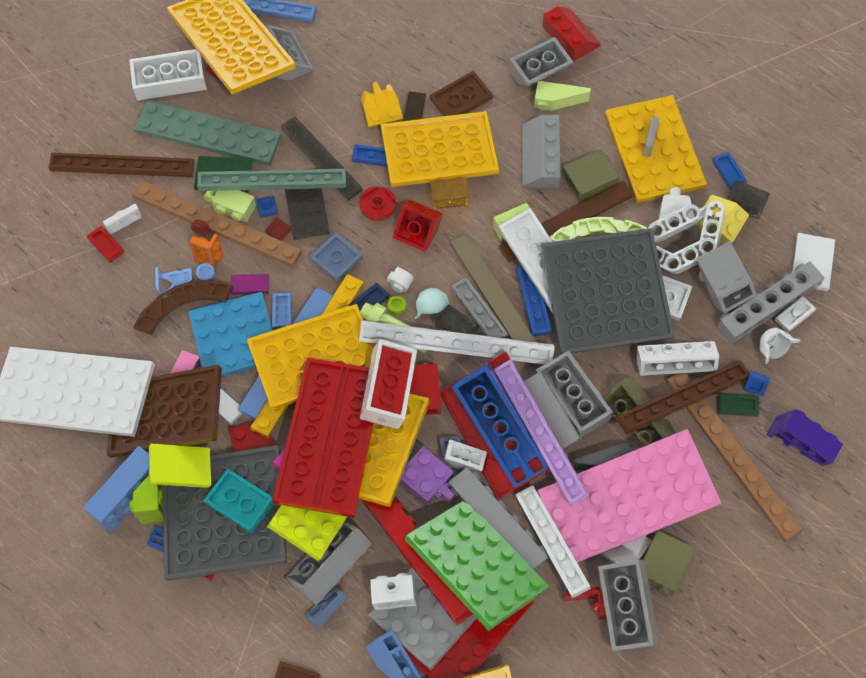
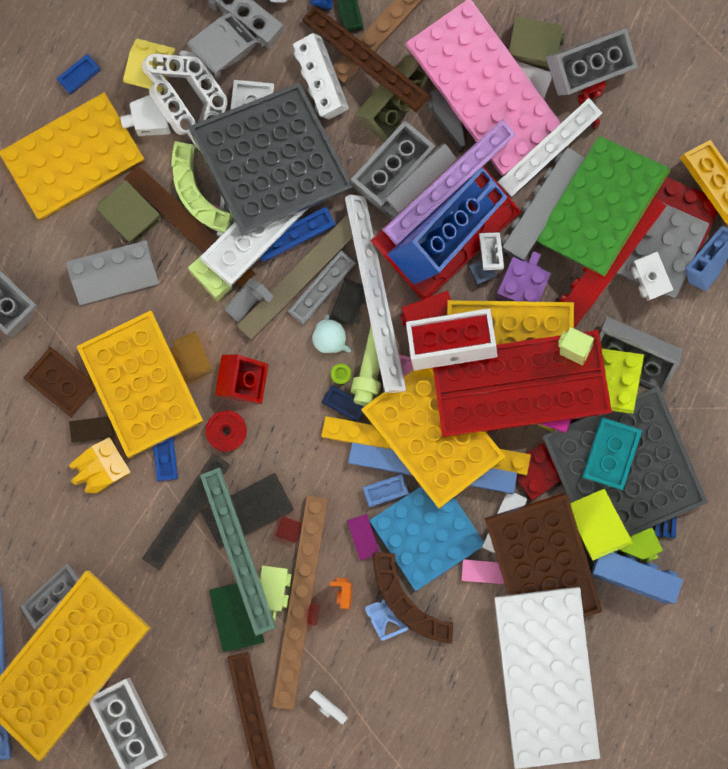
camera: 110 degrees left, 15 degrees up
(105, 244) = (361, 716): red tile -> none
(205, 272) = (363, 590): light blue tile -> none
(207, 132) = (187, 655): sand green plate -> none
(267, 206) = (263, 552): blue tile -> none
(323, 610) = (681, 339): sand blue plate -> none
(336, 257) = (305, 454): sand blue plate -> none
(341, 479) = (575, 345): none -> yellowish green brick
(400, 280) = (313, 377): white plate -> none
(487, 246) = (246, 298): none -> light grey bracket
(557, 96) = (36, 281): yellowish green slope -> none
(651, 136) = (66, 157): light grey tile -> none
(748, 198) = (113, 47): clear smoke brick -> none

